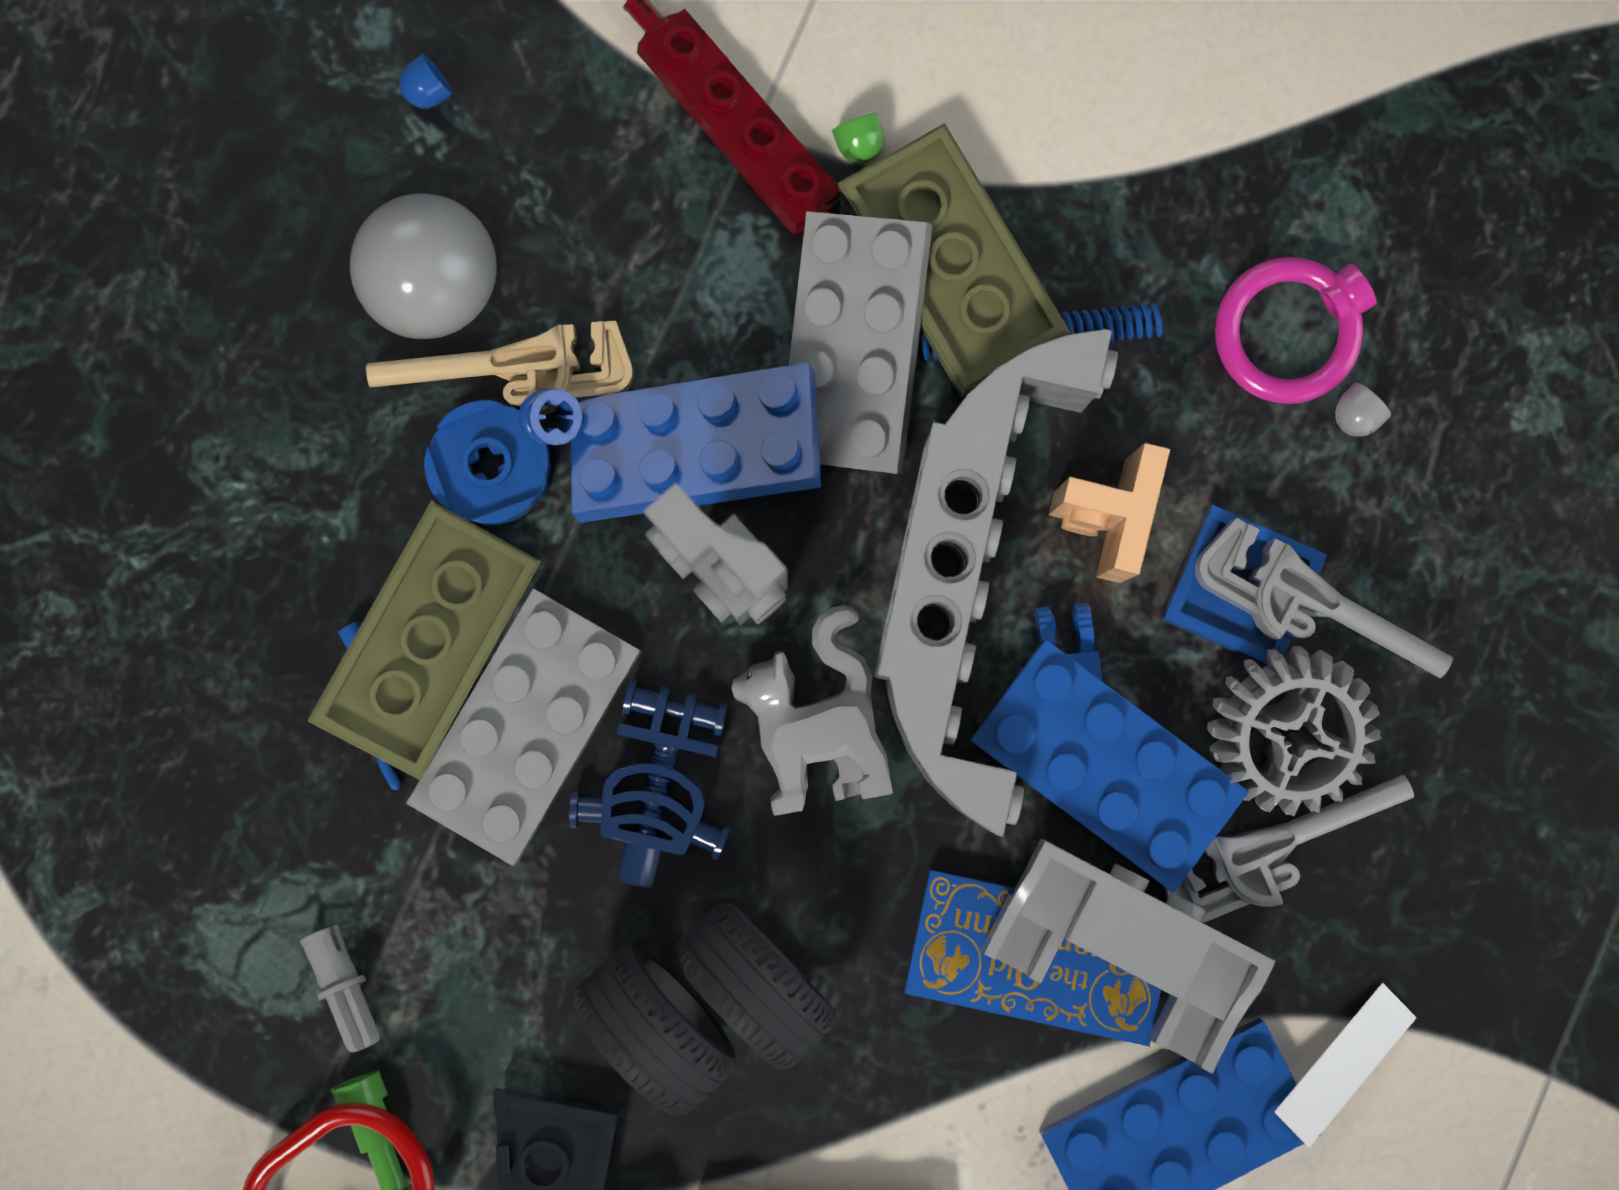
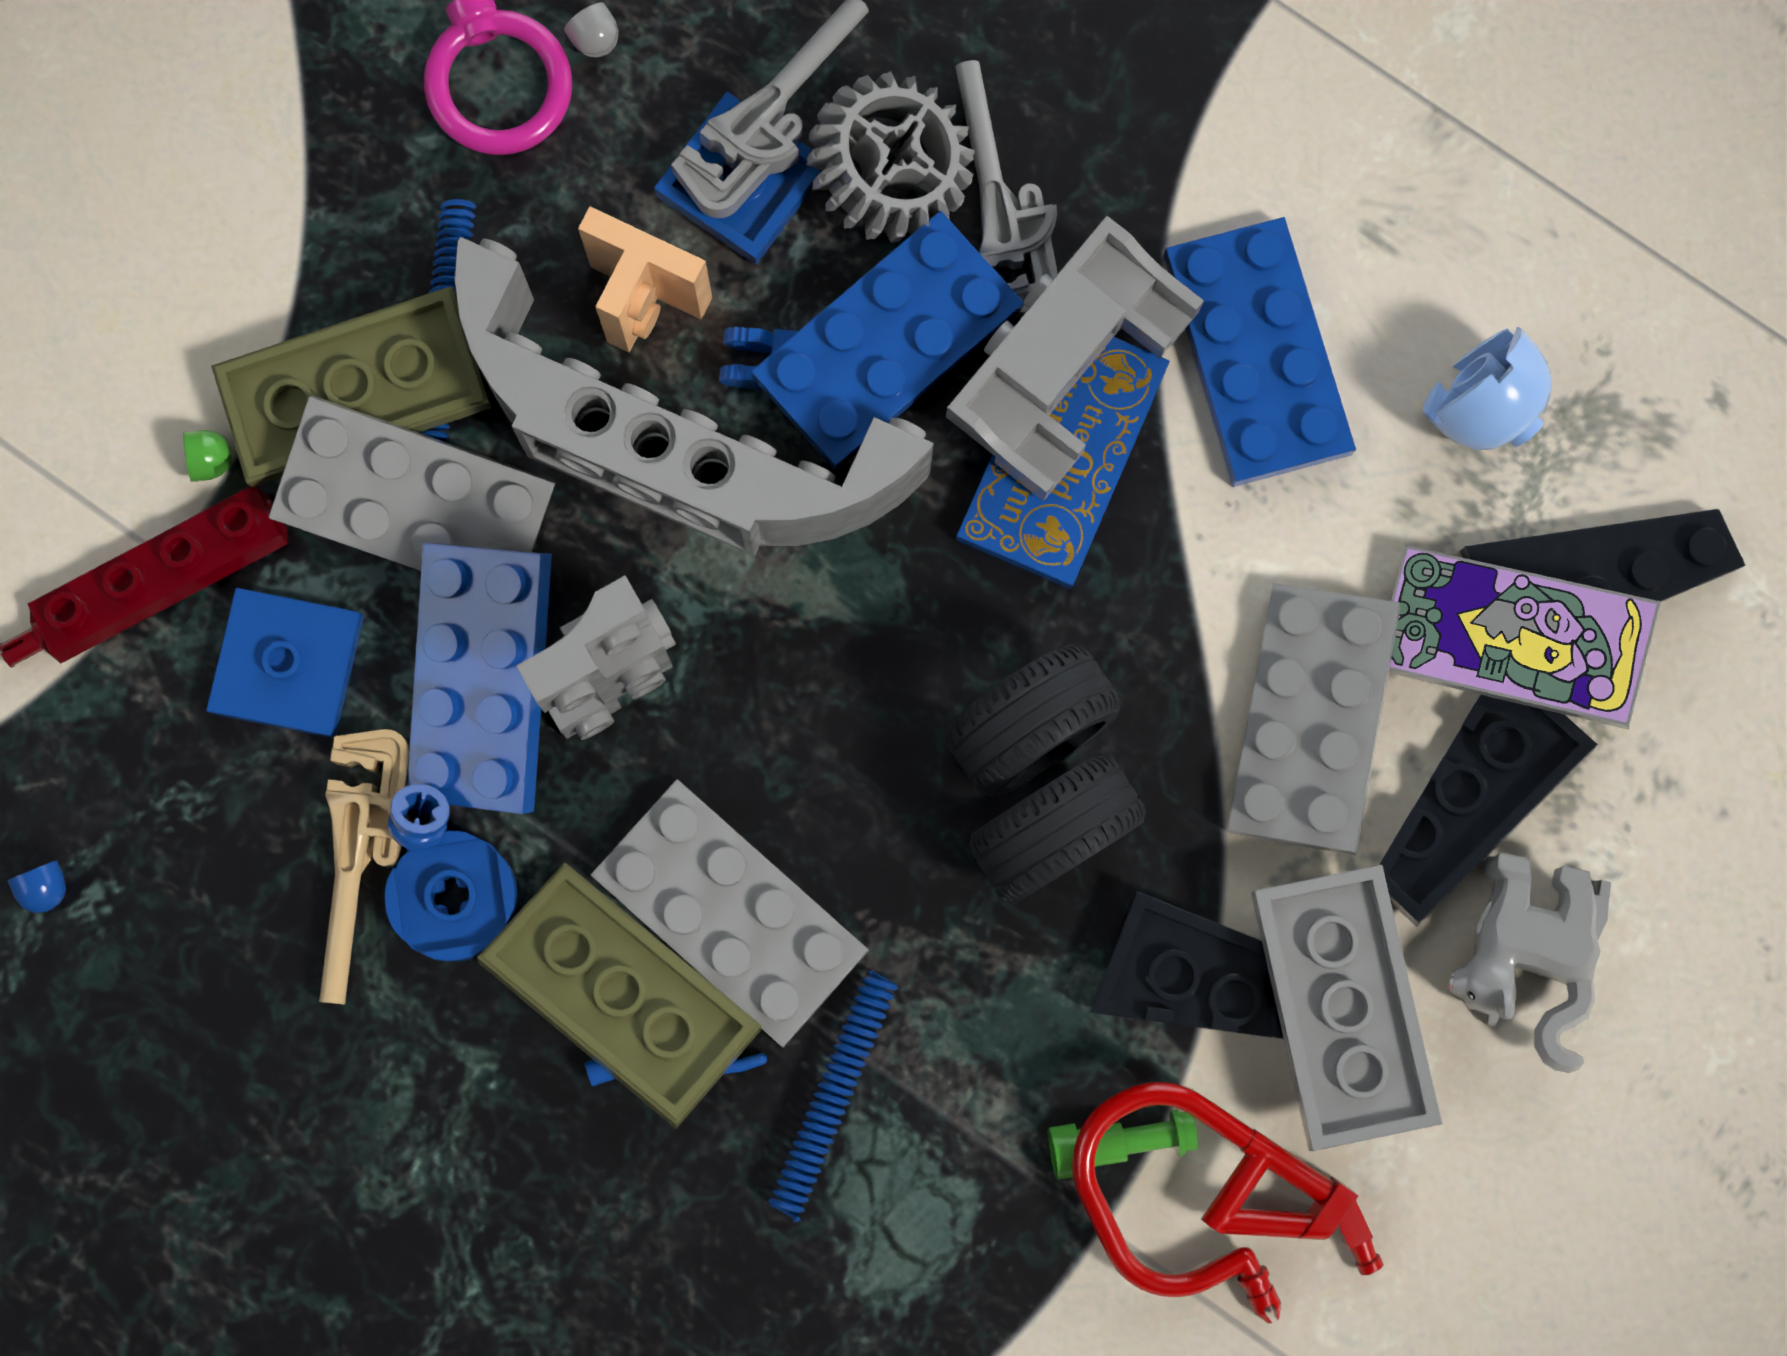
camera: 80 degrees left, 5 degrees down
(341, 987) = (957, 1150): light grey axle -> none
(373, 870) = (833, 1097): none -> blue piece
(423, 266) = (230, 928): light grey piece -> none
(644, 843) = (873, 814): dark blue piece -> none
(678, 259) = (285, 663): none -> blue plate
(821, 730) = (795, 603): light grey animal -> none
(1345, 1065) = (1223, 181): white sticker -> none

